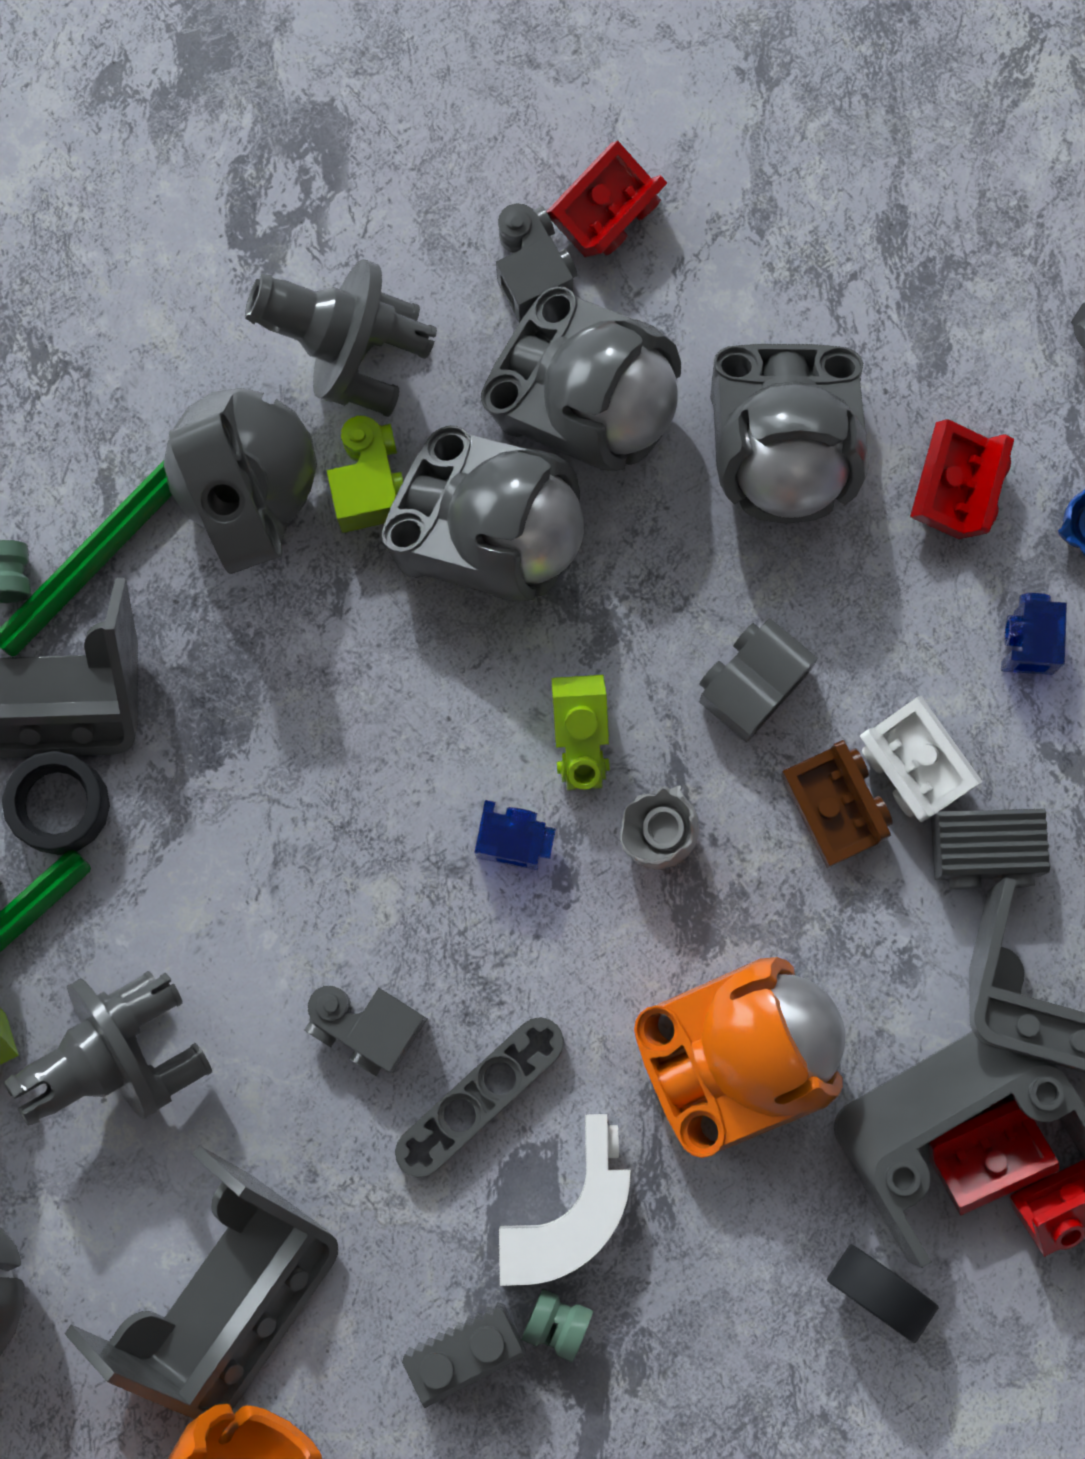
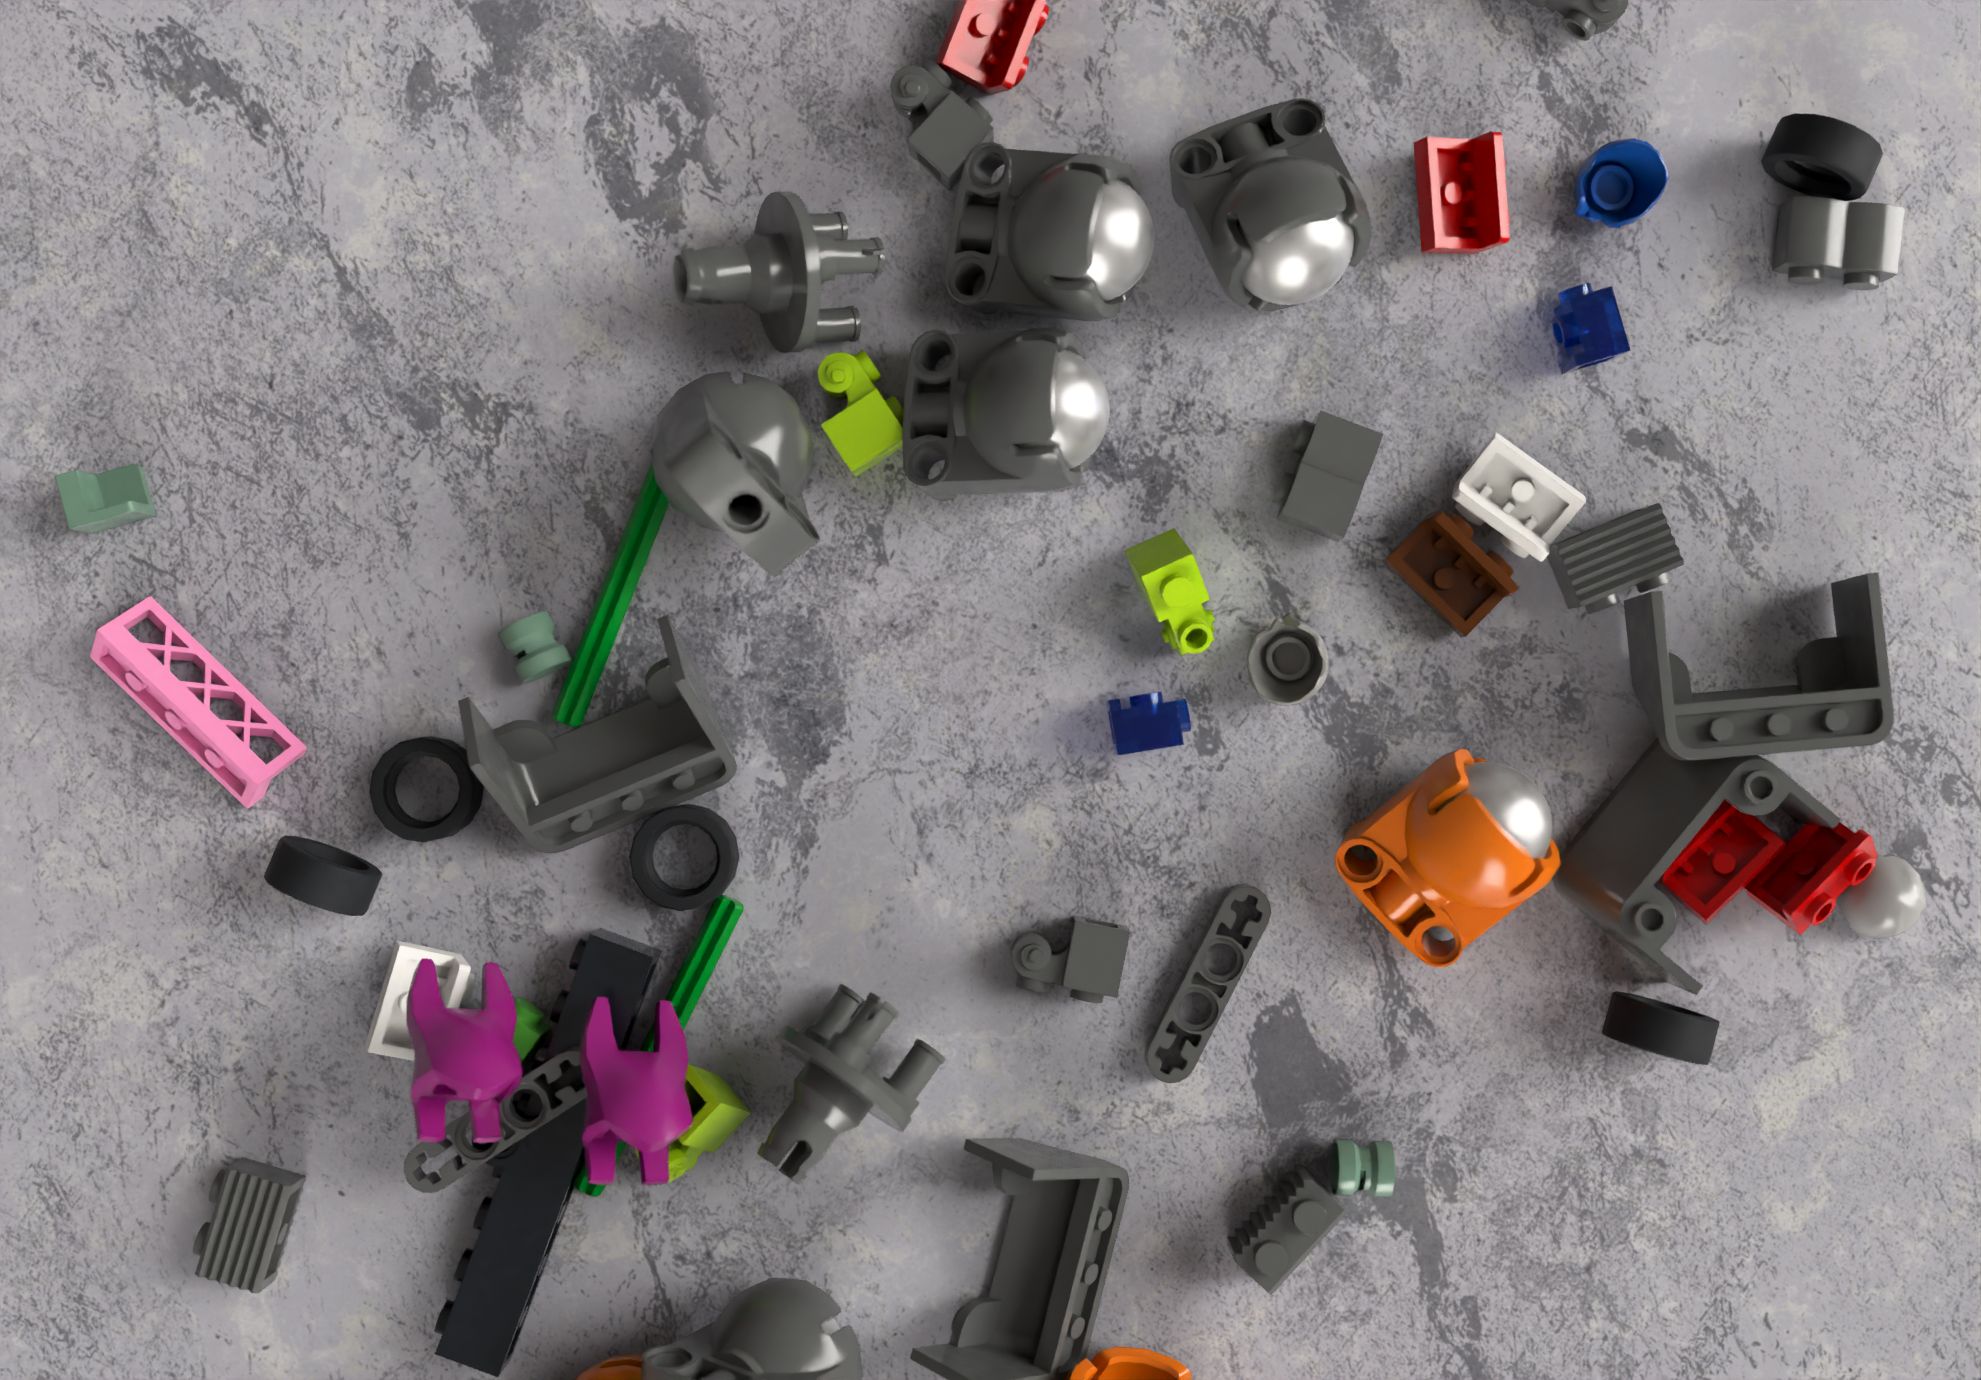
camera: 25 degrees left, 10 degrees up
(559, 1247) = (1352, 1077): white arch -> none

